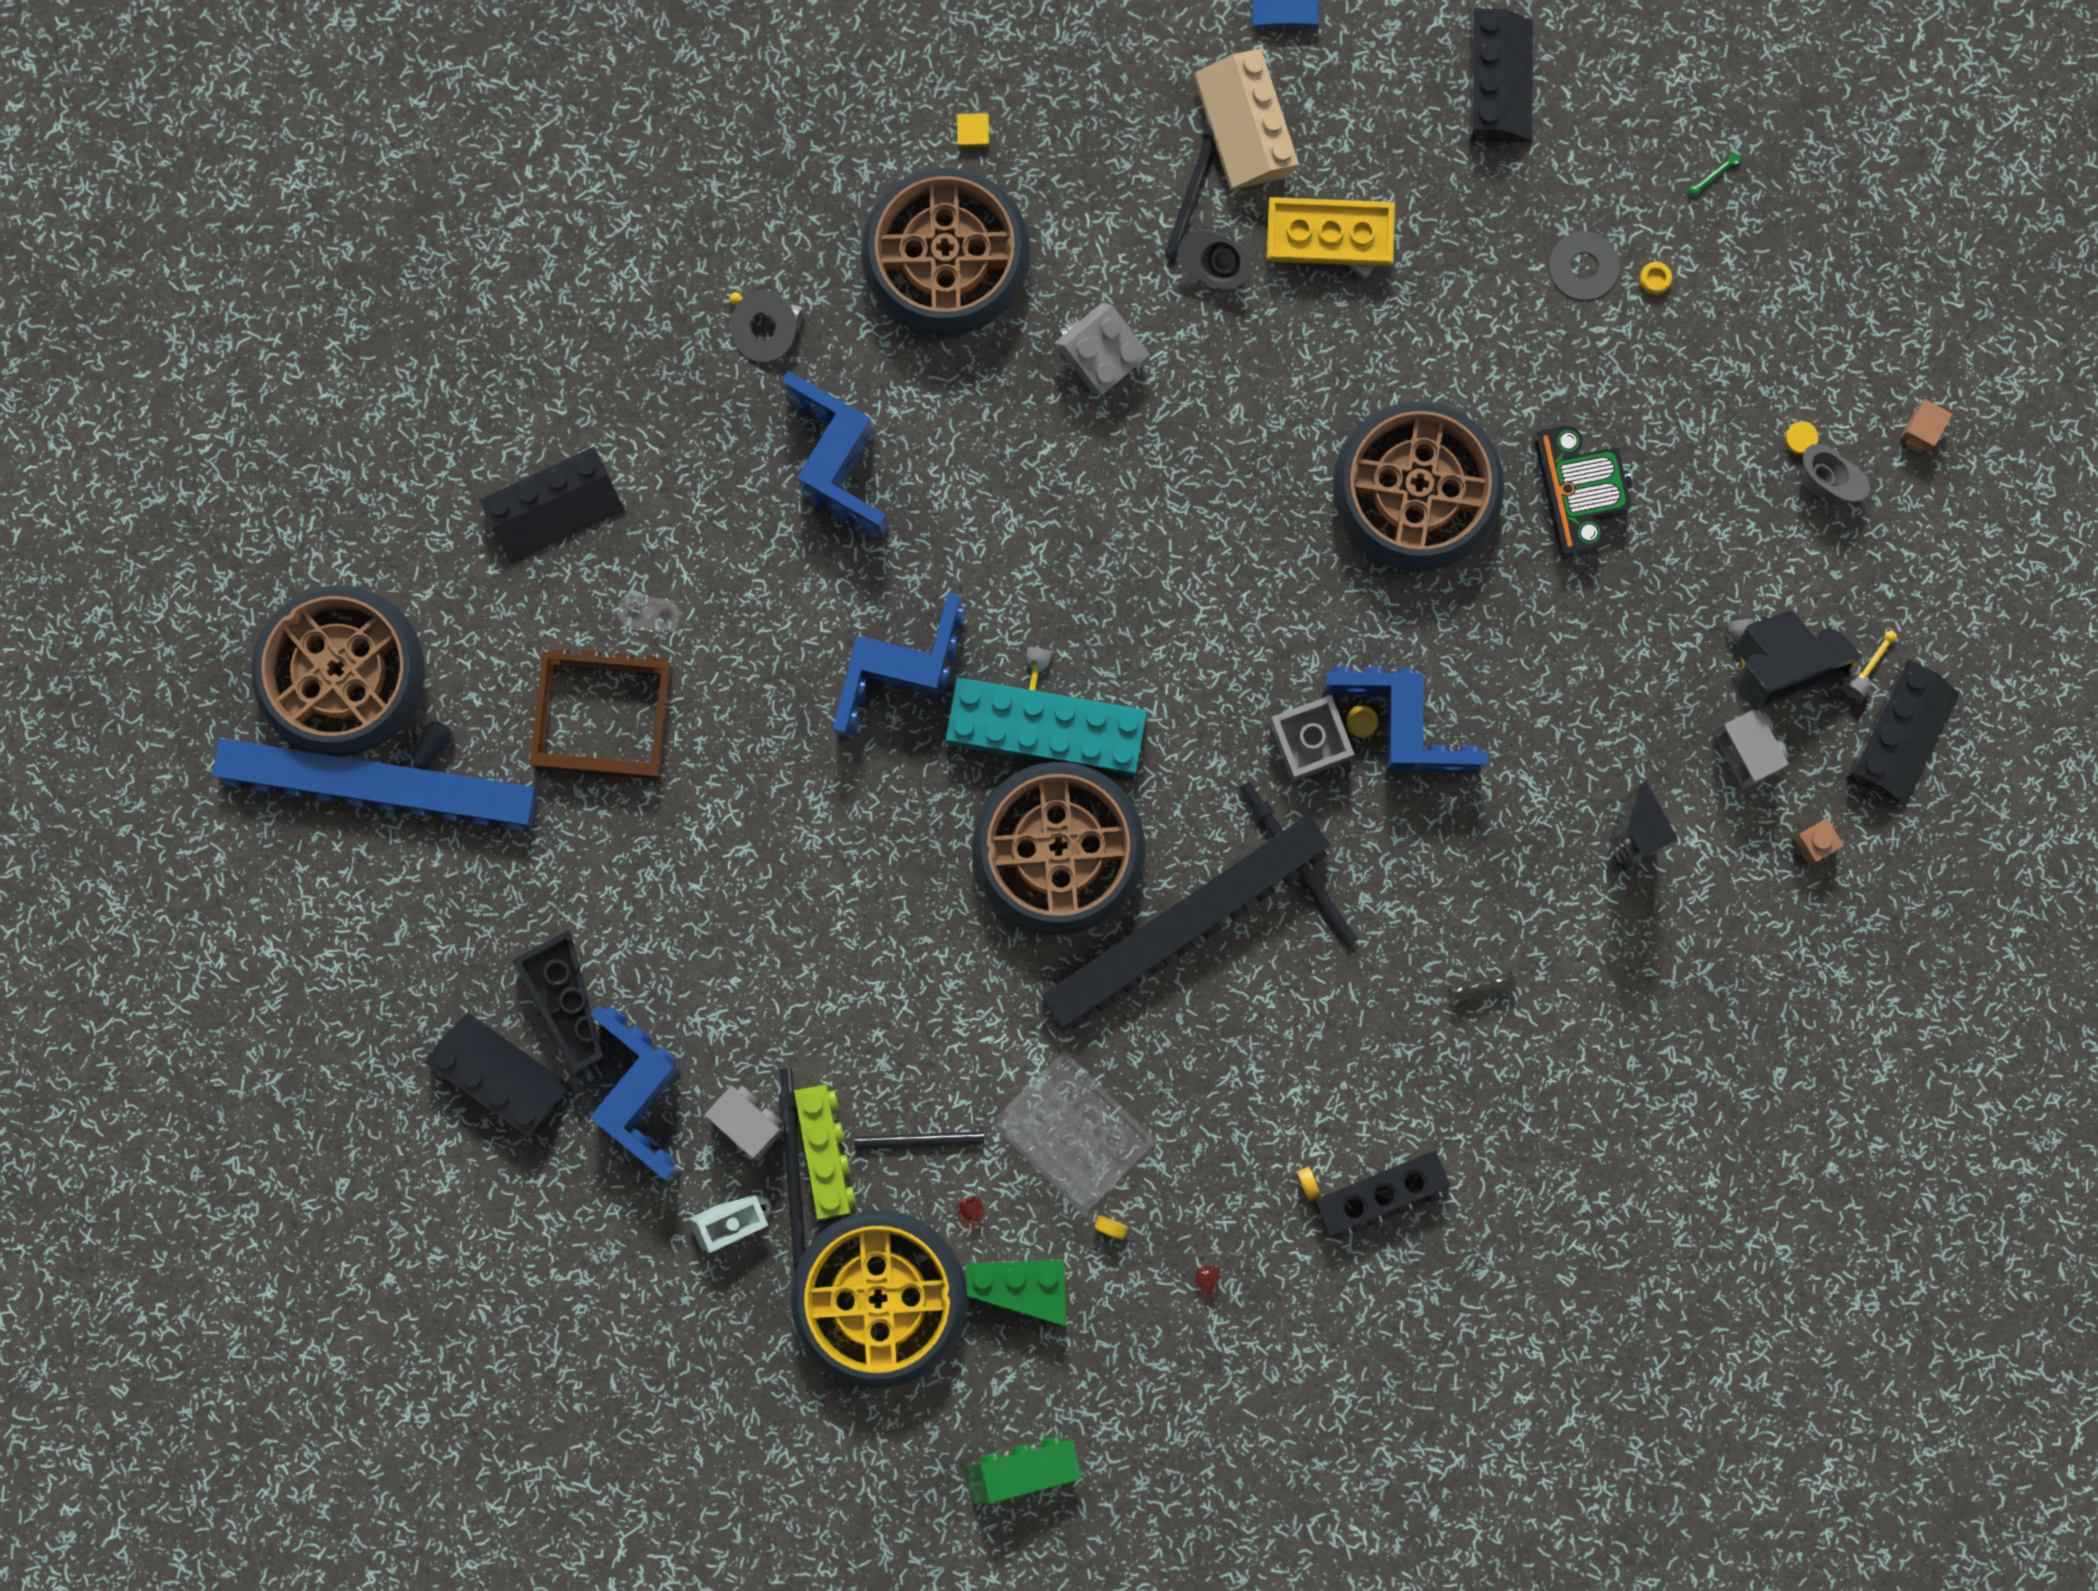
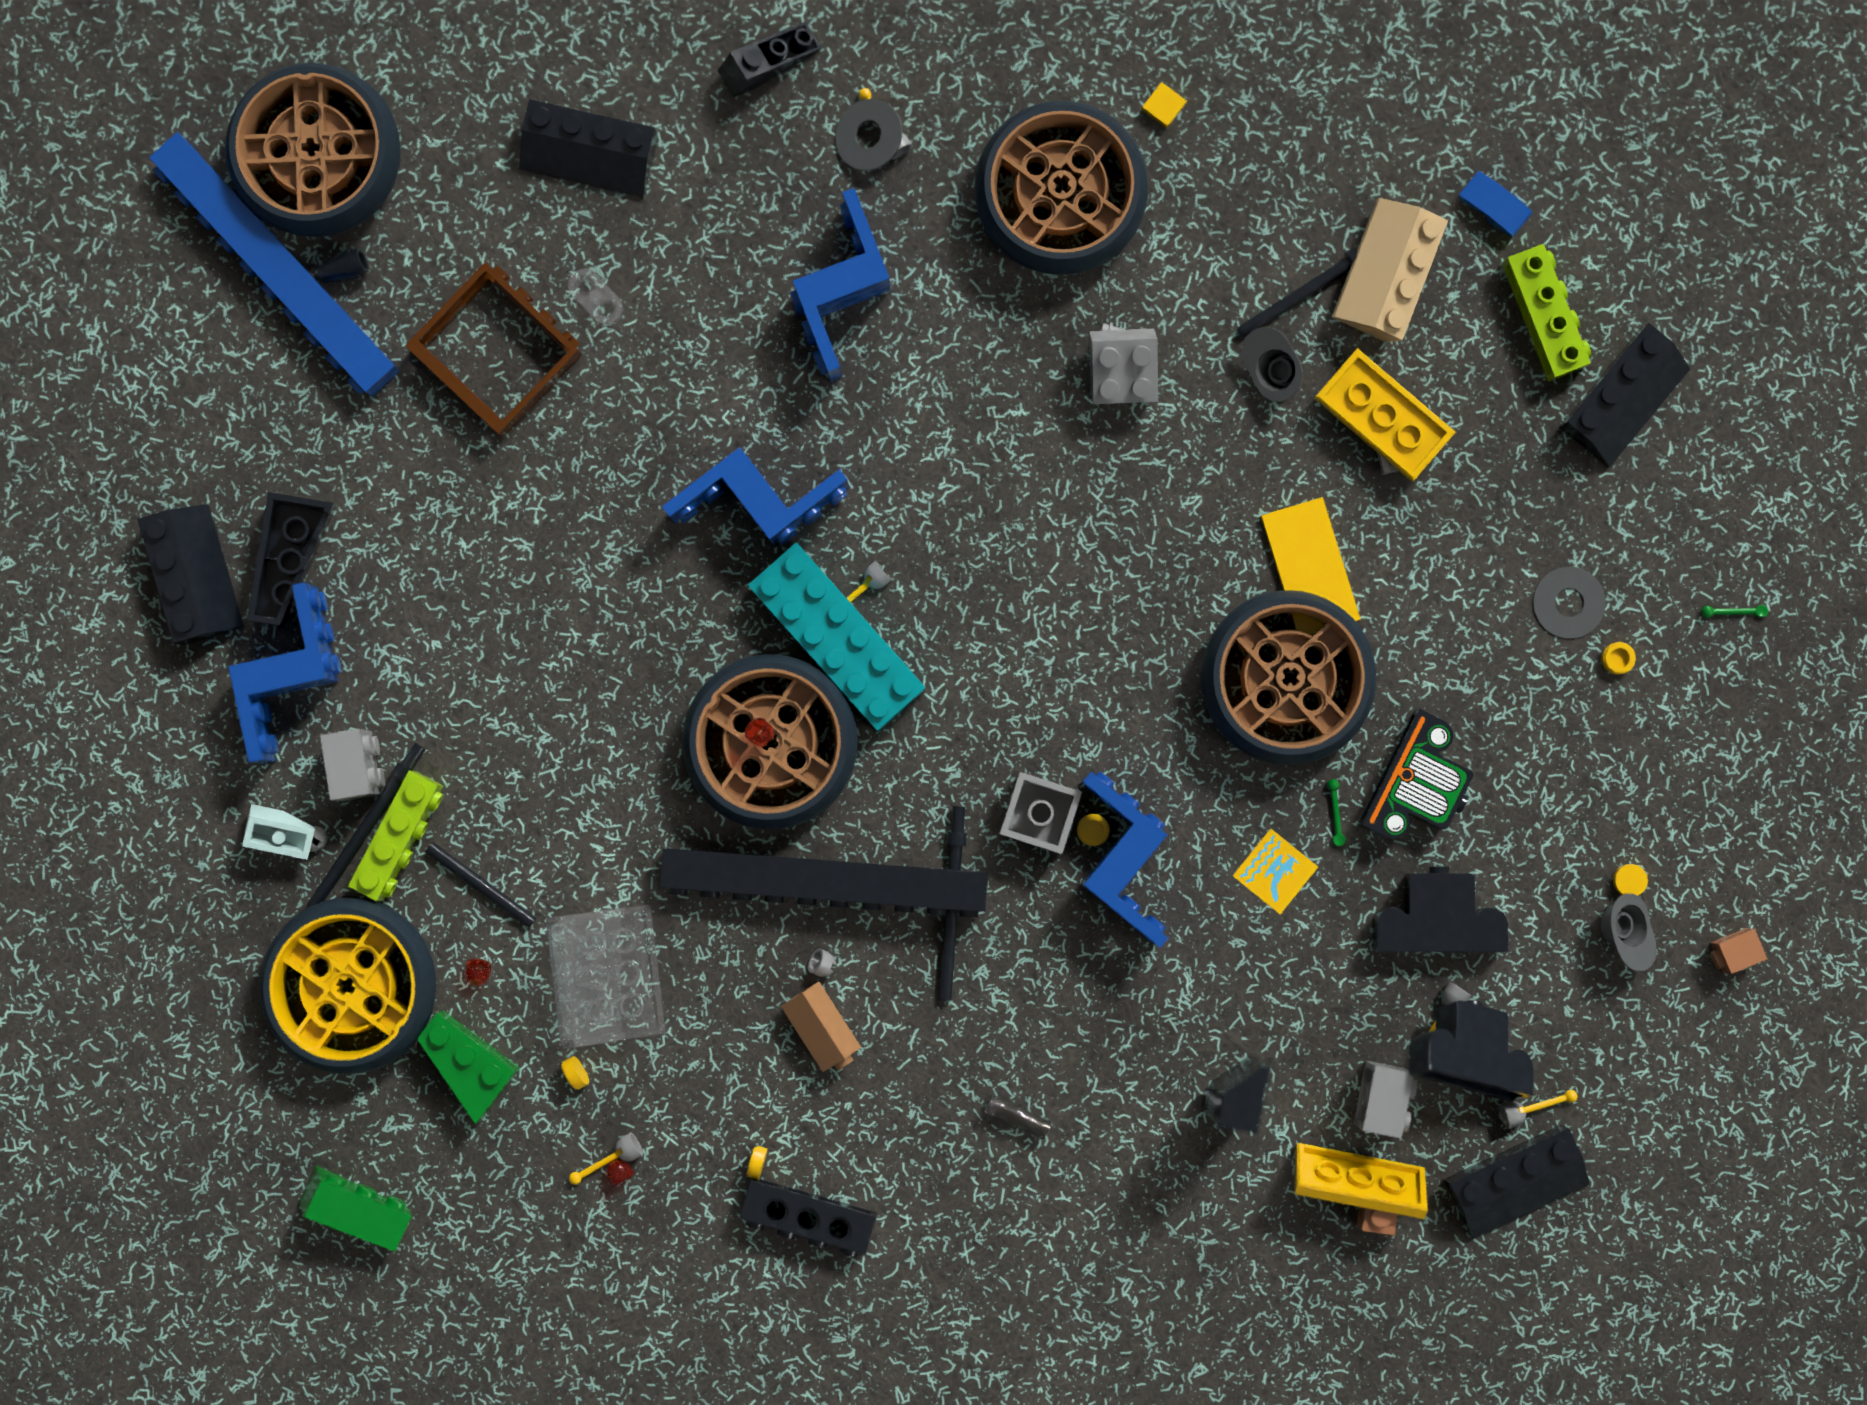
camera: 35 degrees right, 5 degrees up
(638, 329) = (767, 58): none -> black slope
(1039, 842) = (755, 727): none -> clear red hinge
(1198, 1256) = (626, 1149): none -> hinge
(1234, 989) = (821, 963): none -> light grey hinge
(1275, 1038) = (821, 1028): none -> medium nougat brick
(1358, 384) = (1309, 557): none -> yellow tile
(1390, 61) = (1547, 312): none -> lime brick
(1526, 644) = (1275, 871): none -> yellow sticker
(1554, 580) = (1338, 839): none -> green hinge
(1680, 578) = (1440, 917): none -> black brick
(1784, 825) = (1360, 1180): none -> yellow tile

